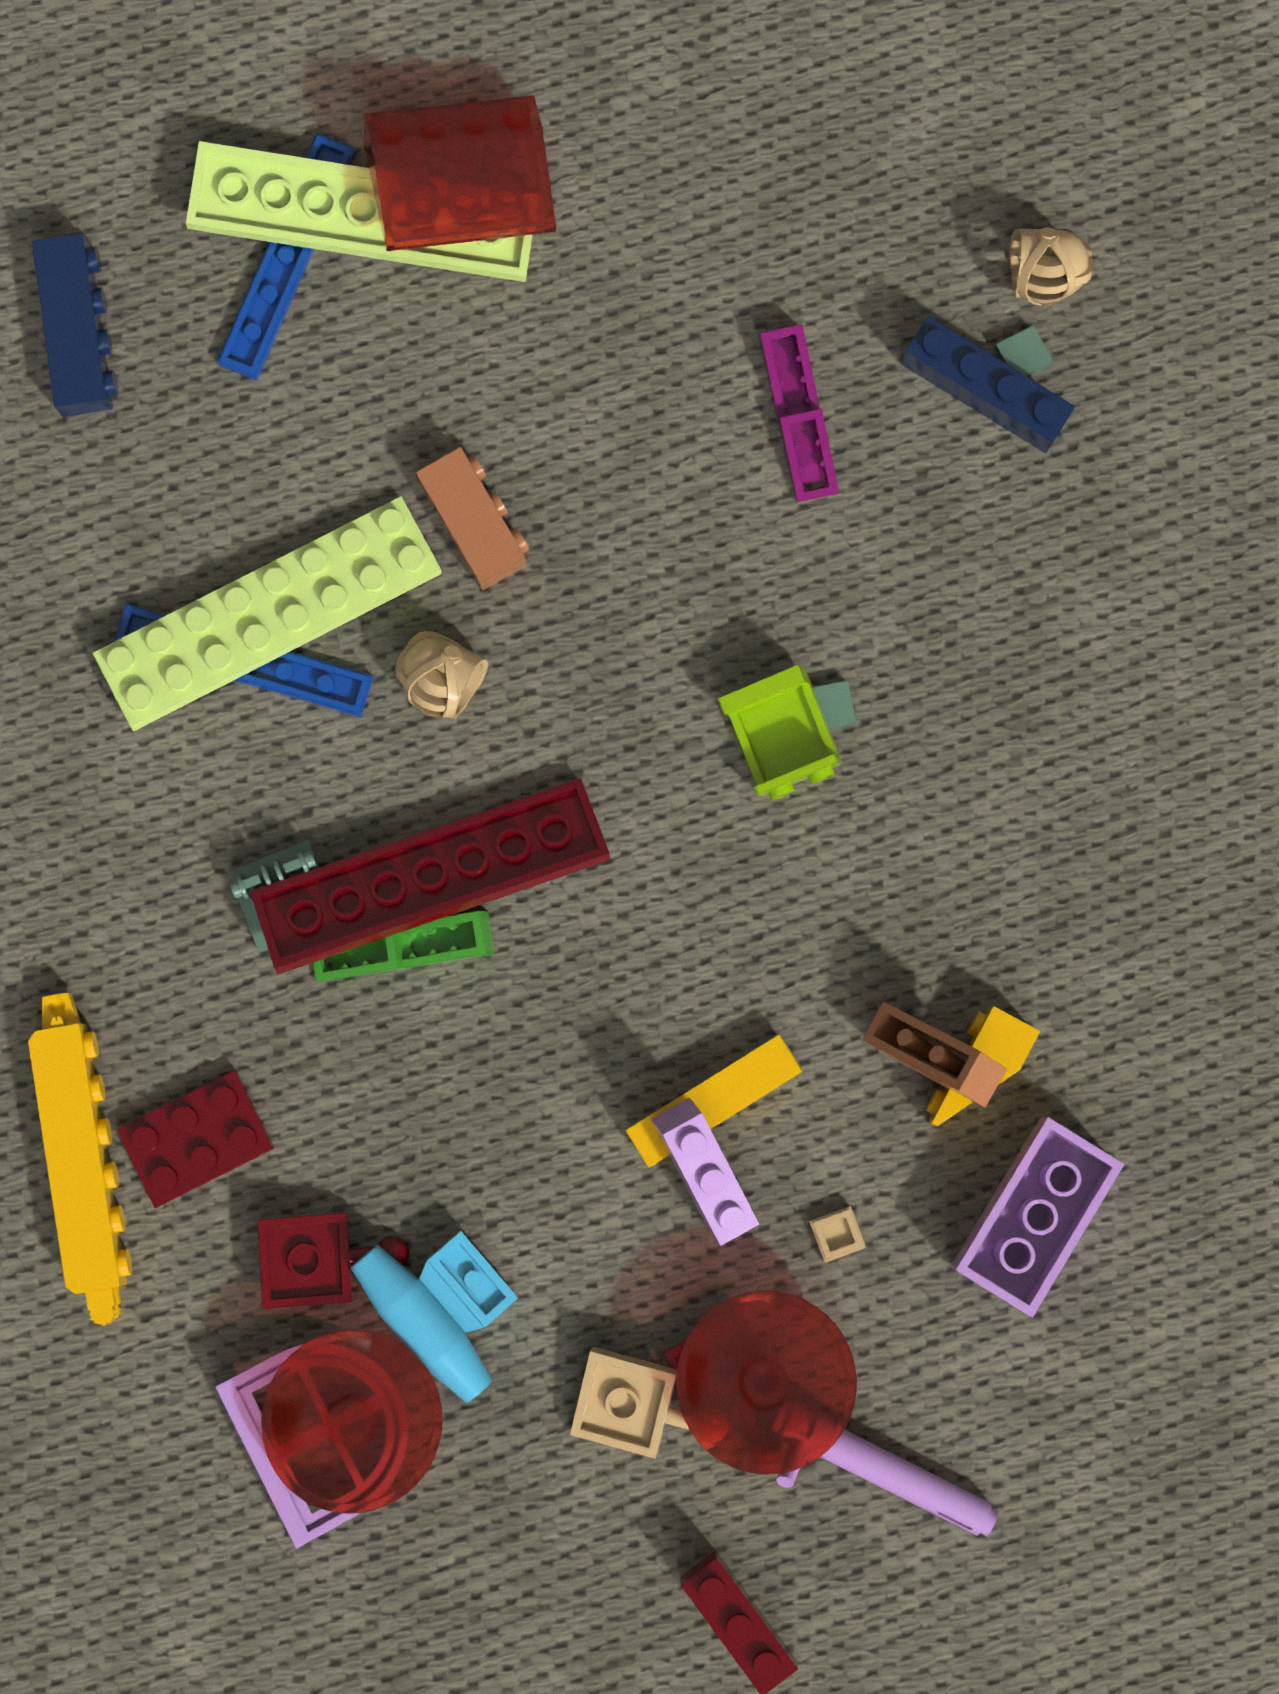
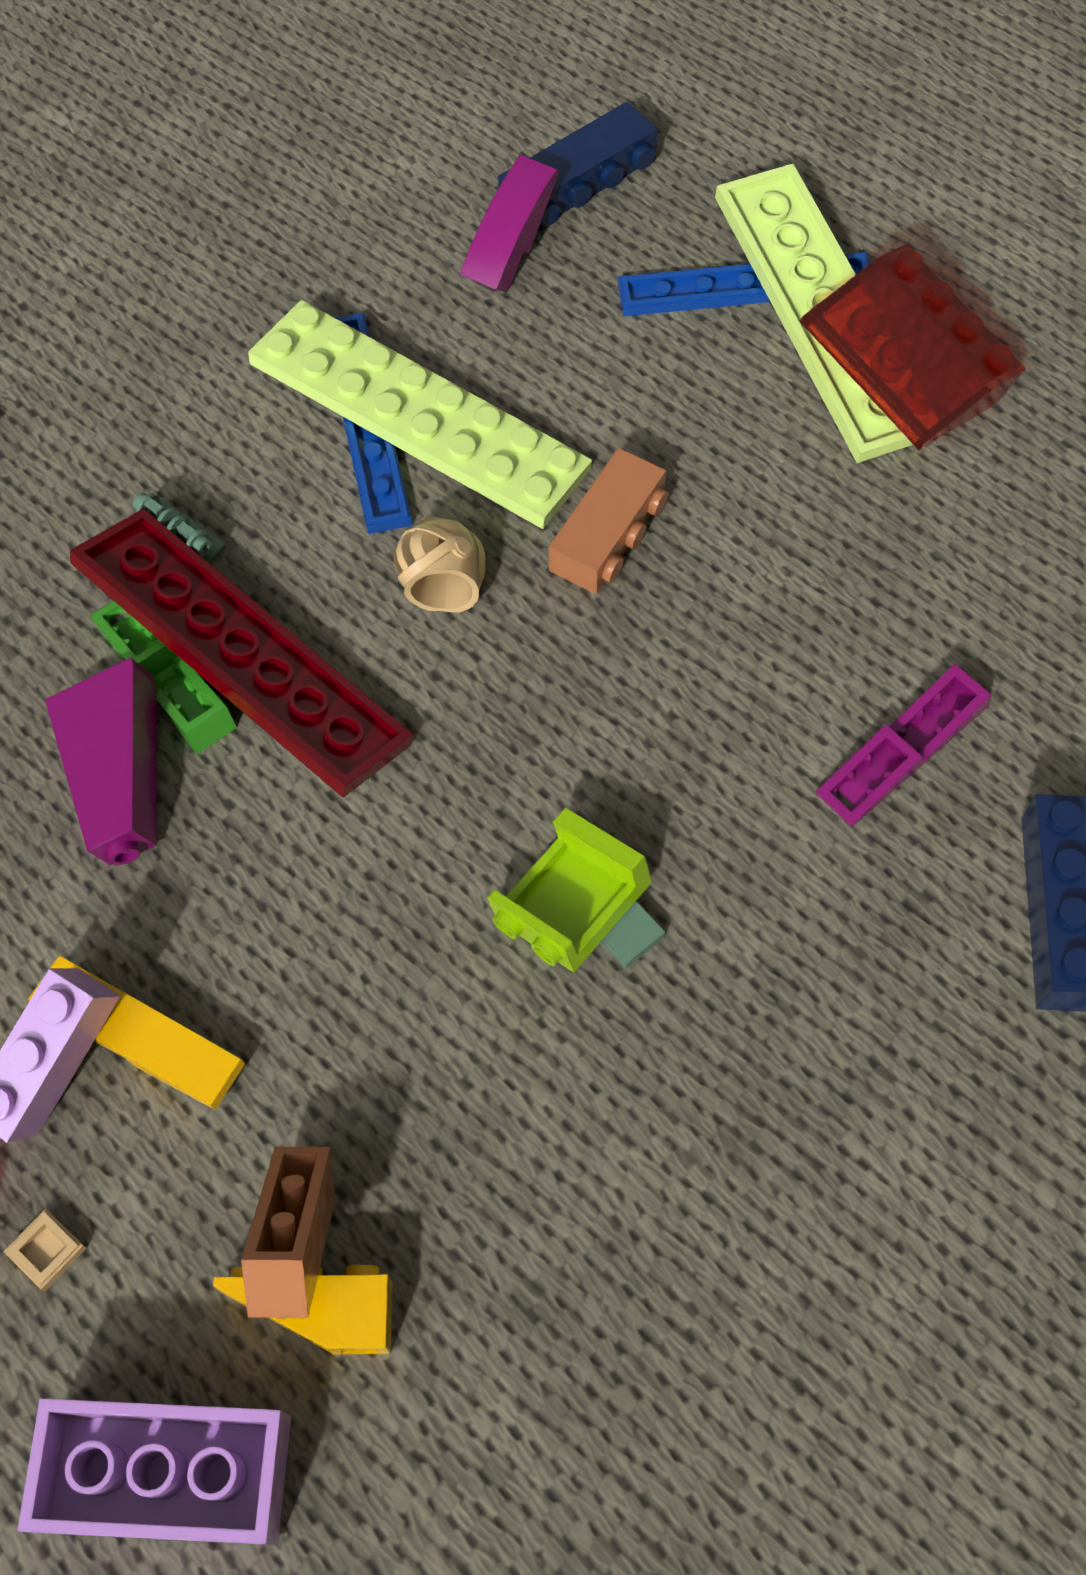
camera: 60 degrees right, 20 degrees down
(119, 427) = (510, 224): none -> magenta slope
(473, 1022) = (110, 758): none -> magenta slope

